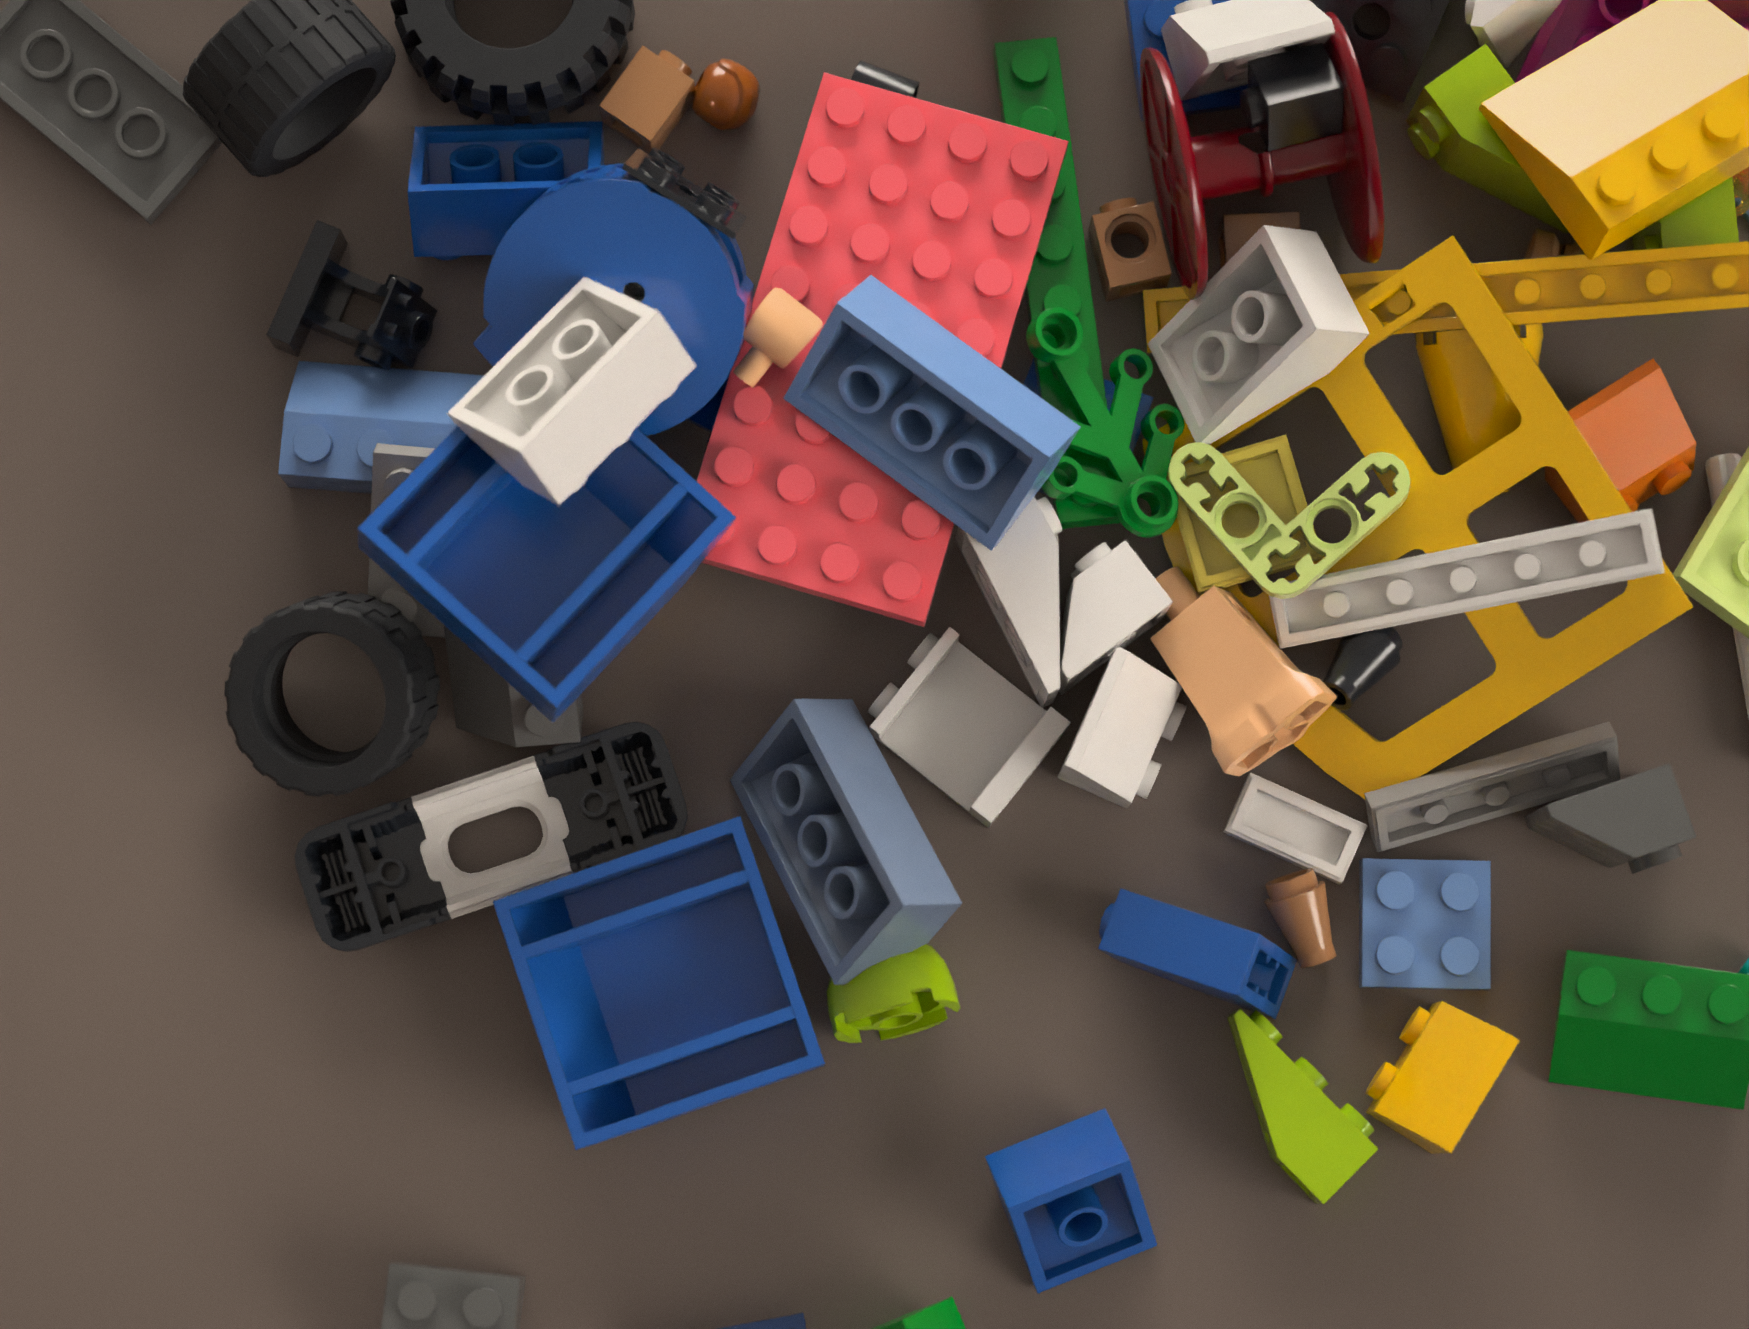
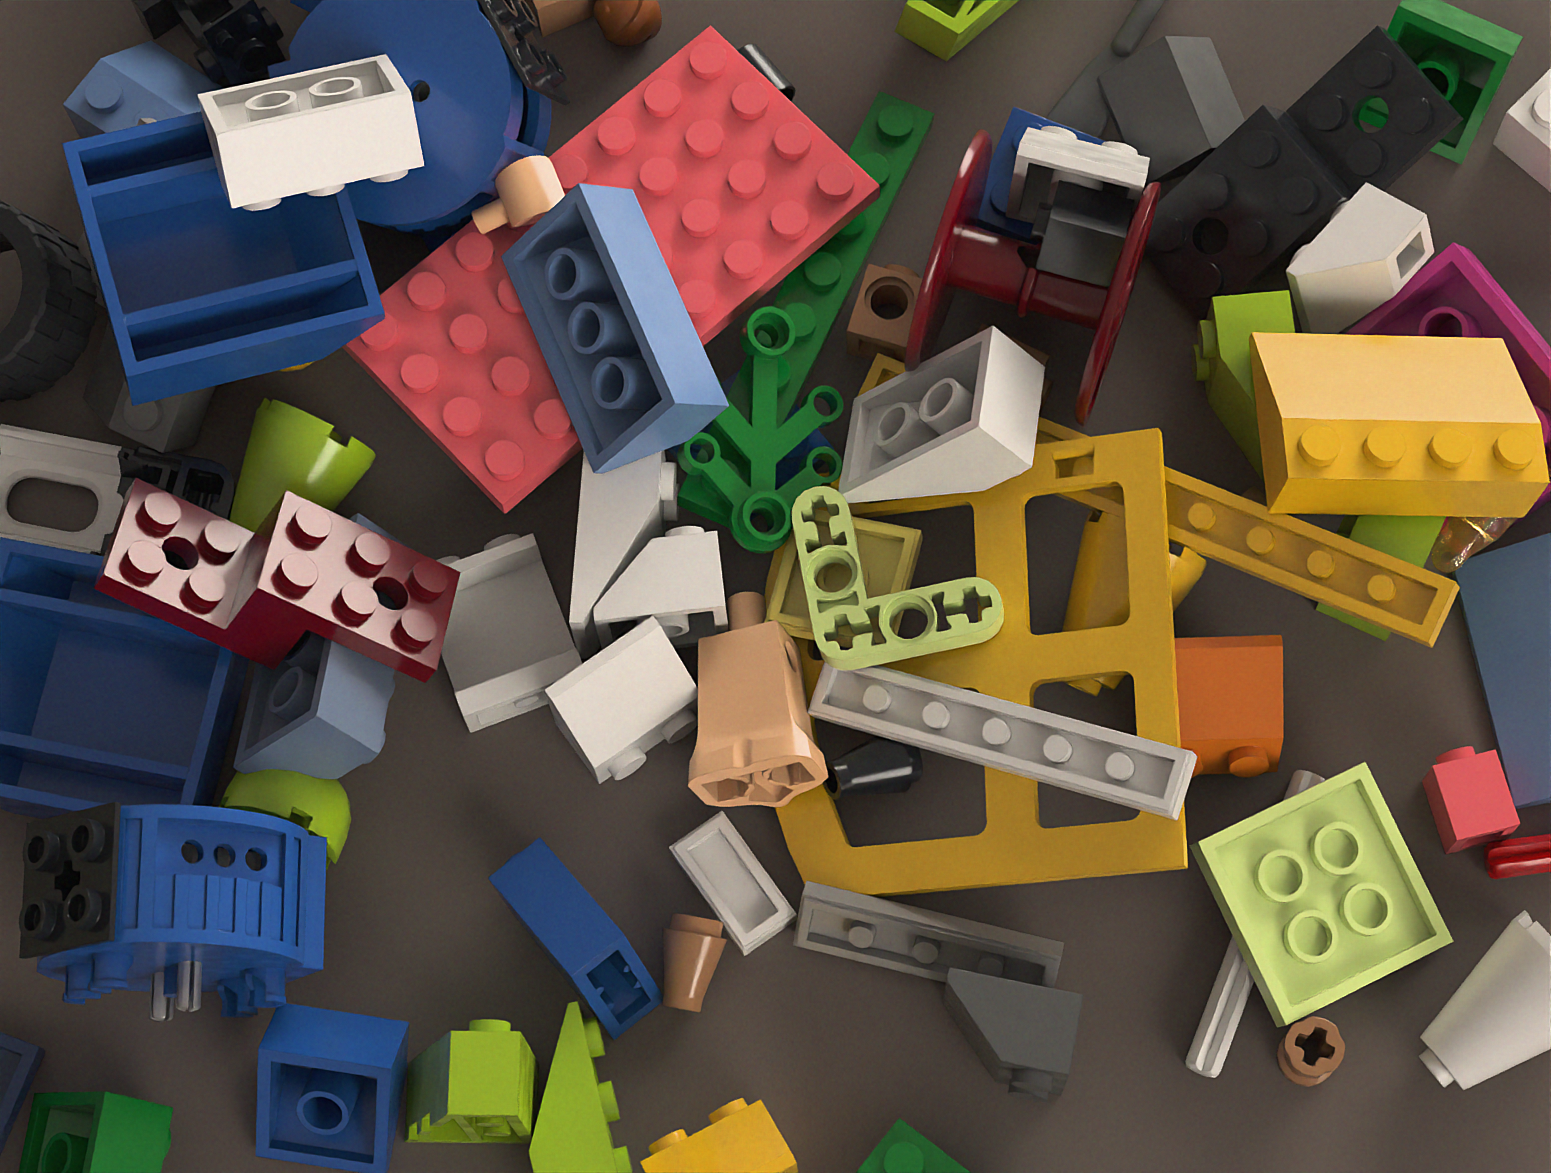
camera: 40 degrees right, 10 degrees down
(706, 709) = (296, 455): none -> lime cone
(776, 802) = (274, 584): none -> dark red bracket
(874, 1138) = (174, 905): none -> blue piece
(1201, 1137) = (474, 1088): none -> lime wedge
(1424, 924) = (796, 1032): medium blue plate -> none

